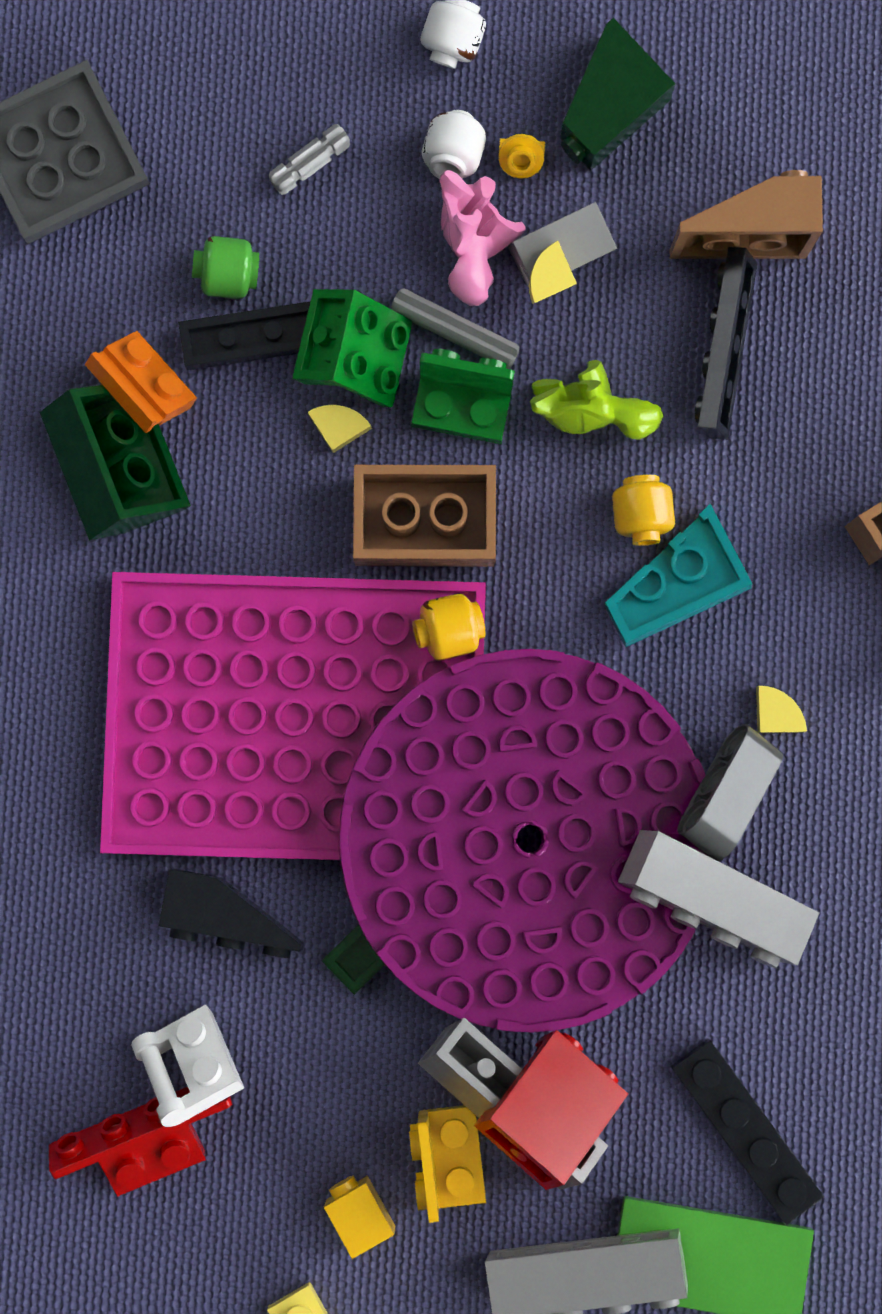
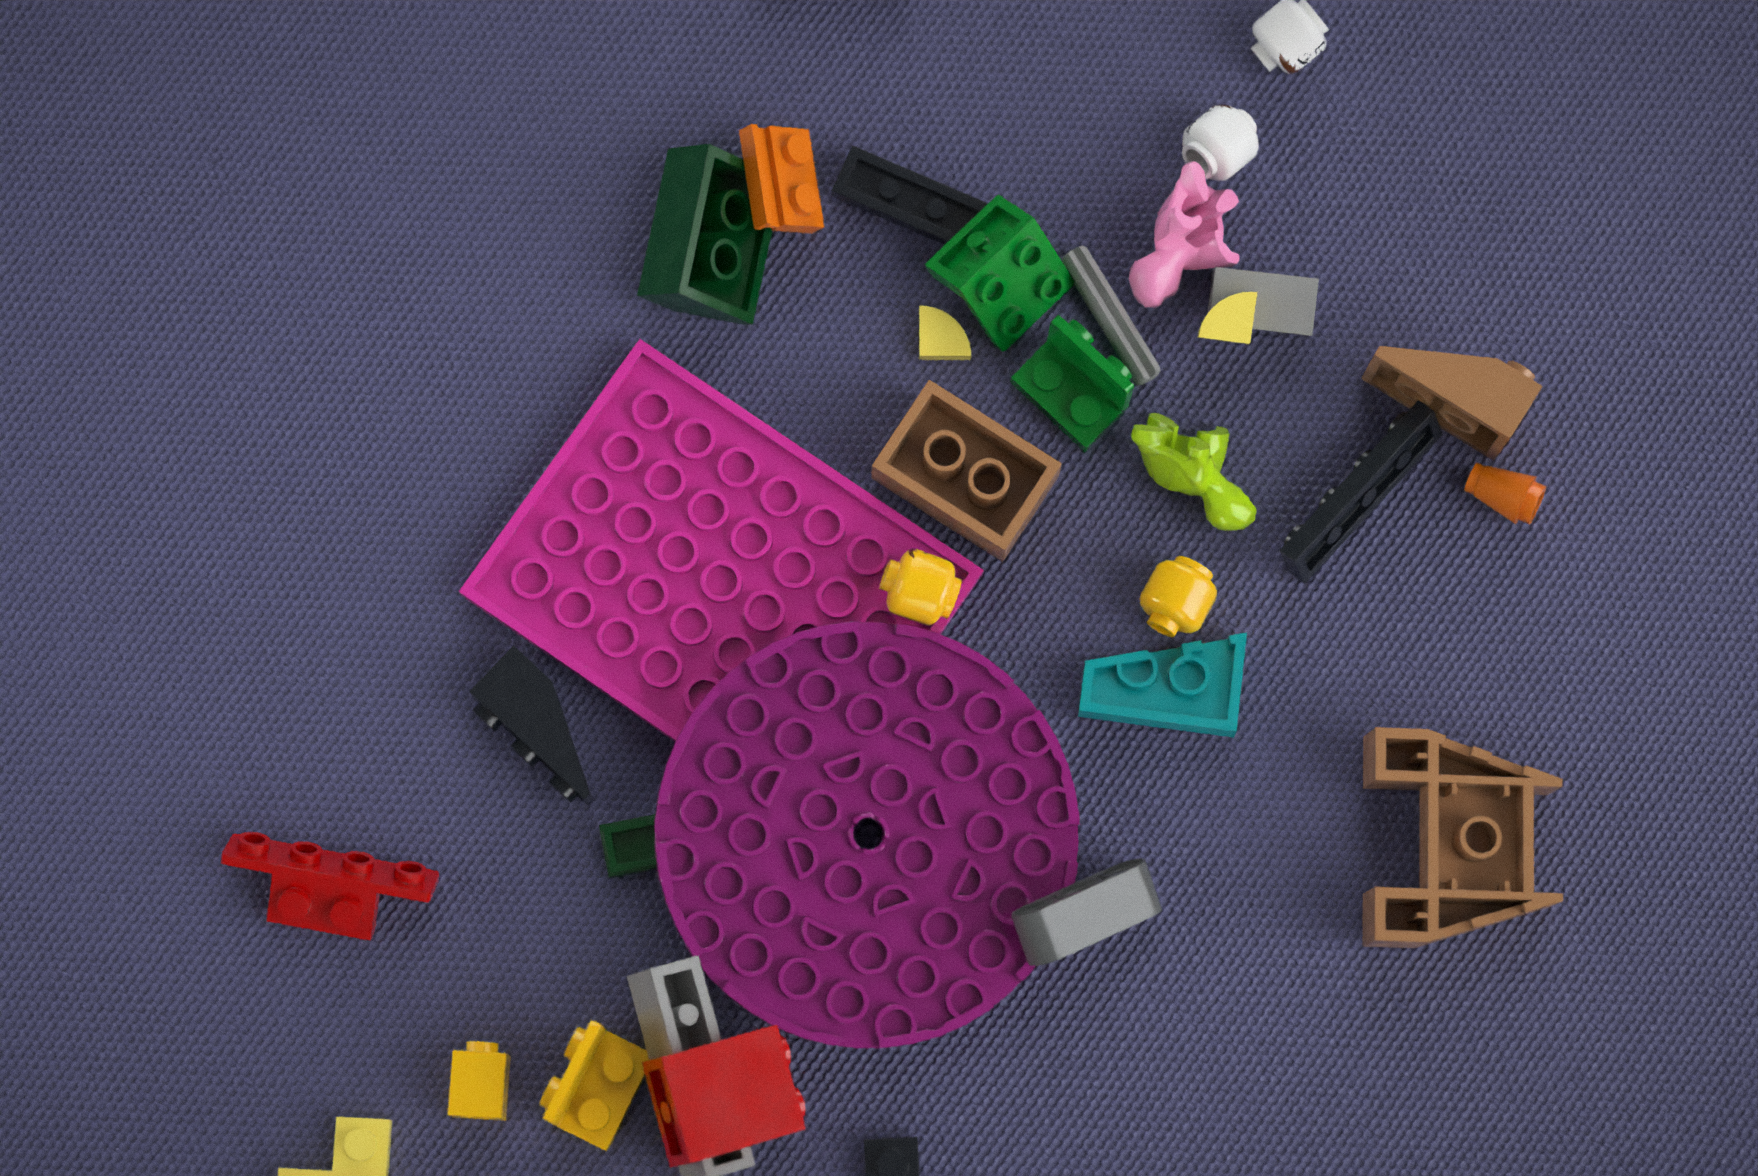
camera: 30 degrees right, 5 degrees down
(201, 1058) = (428, 843): white plate -> none
(226, 267) = (930, 123): bright green head -> none
(309, 159) = (1075, 71): light grey axle -> none
(521, 155) = (1280, 192): yellow plate -> none
(614, 97) = (1401, 193): dark green slope -> none
(718, 898) = (1009, 1002): light grey brick -> none
(778, 712) = (1184, 871): light yellow tile -> none
(834, 275) = (1507, 492): none -> orange cone

